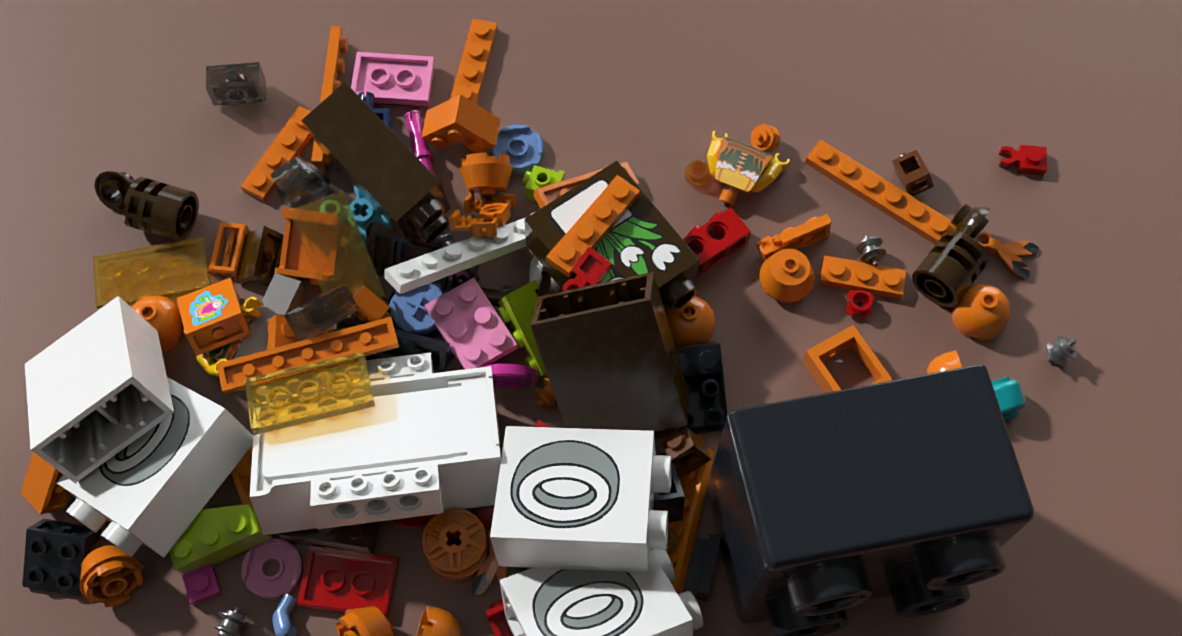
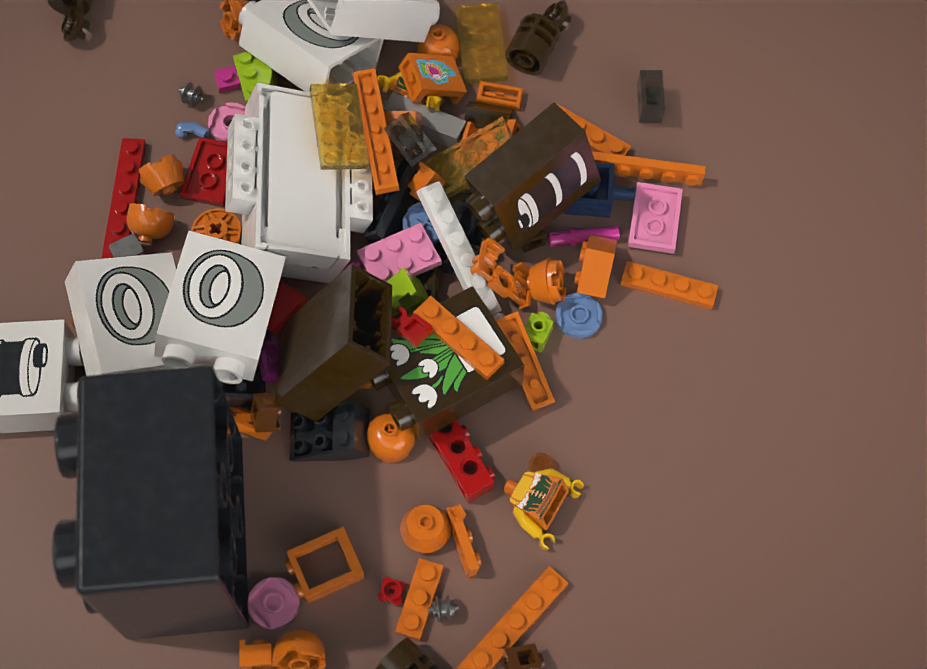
camera: 95 degrees right, 0 degrees up
(765, 138) = (571, 529): orange wheel -> none

